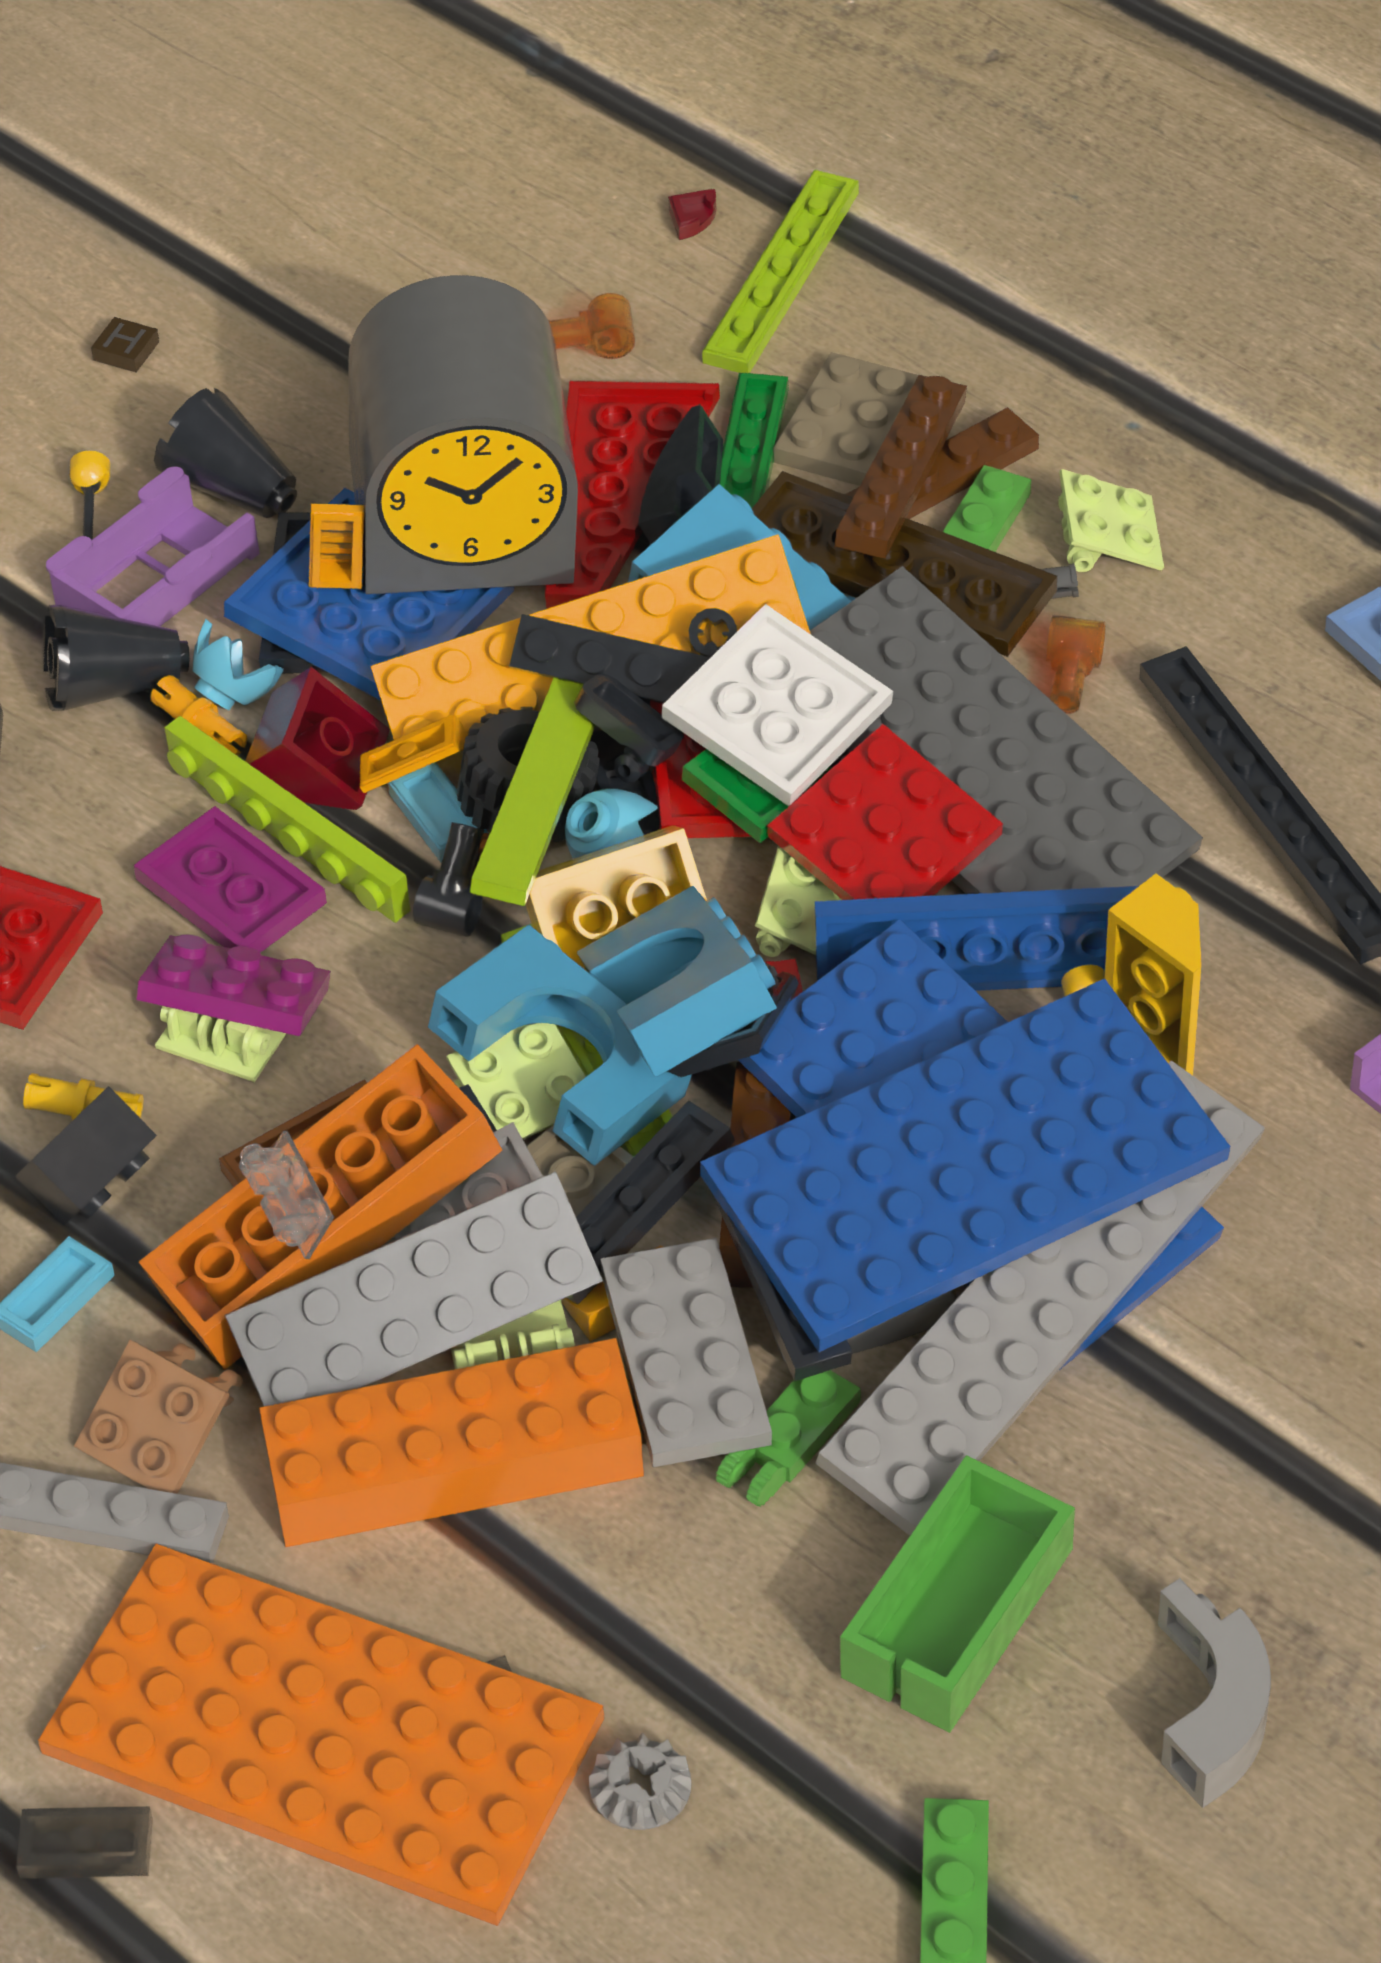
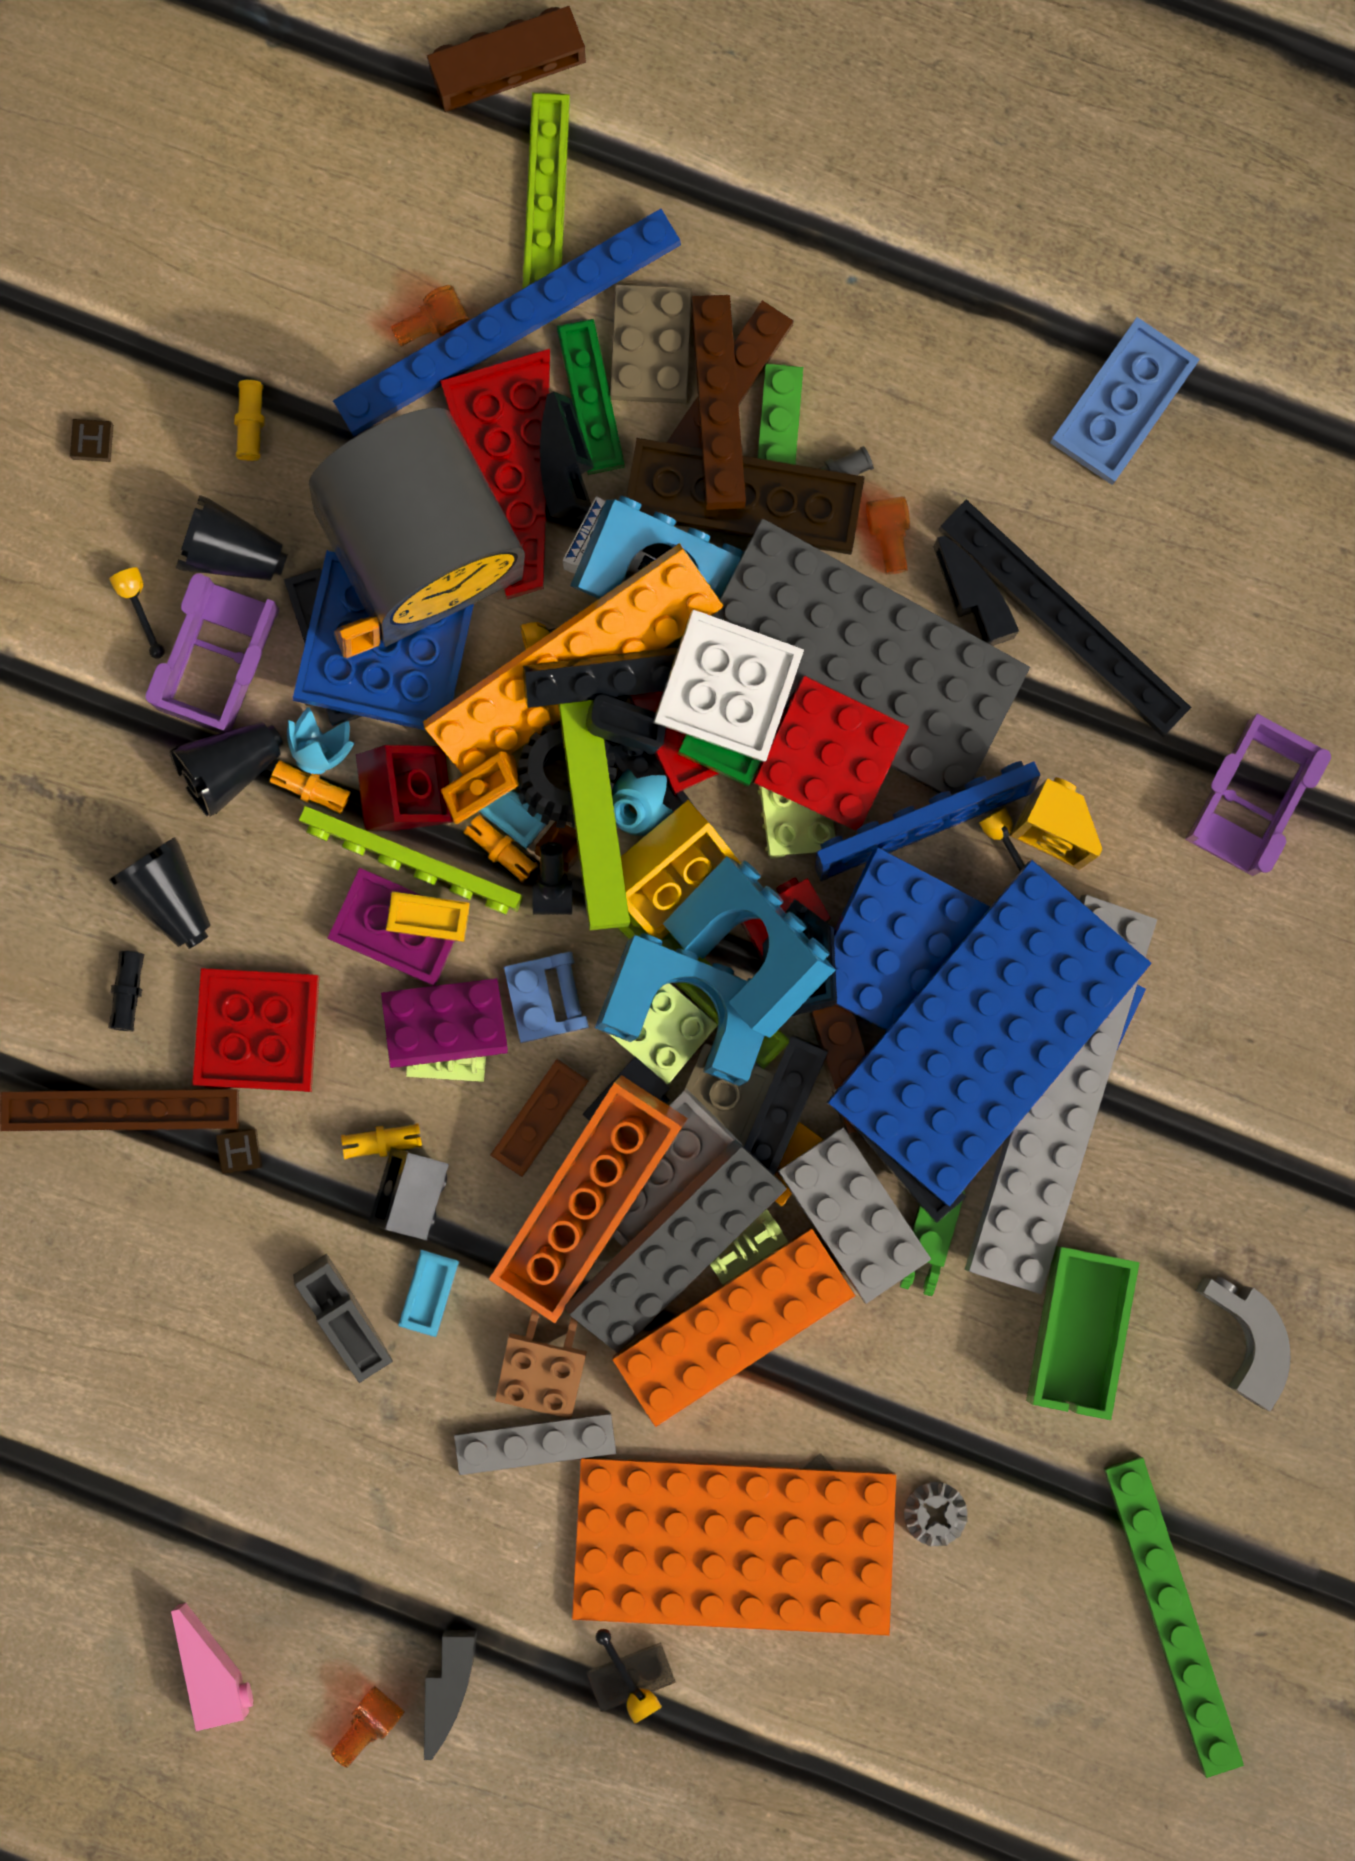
camera: 30 degrees left, 35 degrees up
(77, 1849) = (640, 1701): none -> hinge
(274, 872) = (428, 916): none -> yellow tile
(289, 1191) = (592, 1236): clear hinge -> none
(320, 367) = (249, 420): none -> yellow pin
(367, 1010) = (533, 1001): none -> medium blue plate
(405, 840) = (500, 848): none -> light orange pin
(692, 212) = (456, 164): dark red tile -> none
(715, 616) = (660, 626): black bush -> none
(748, 340) = (507, 322): none -> blue plate
(798, 132) = (506, 57): none -> reddish brown brick
(1107, 521) = (872, 392): yellowish green hinge -> none
(1160, 743) = (975, 593): none -> black slope

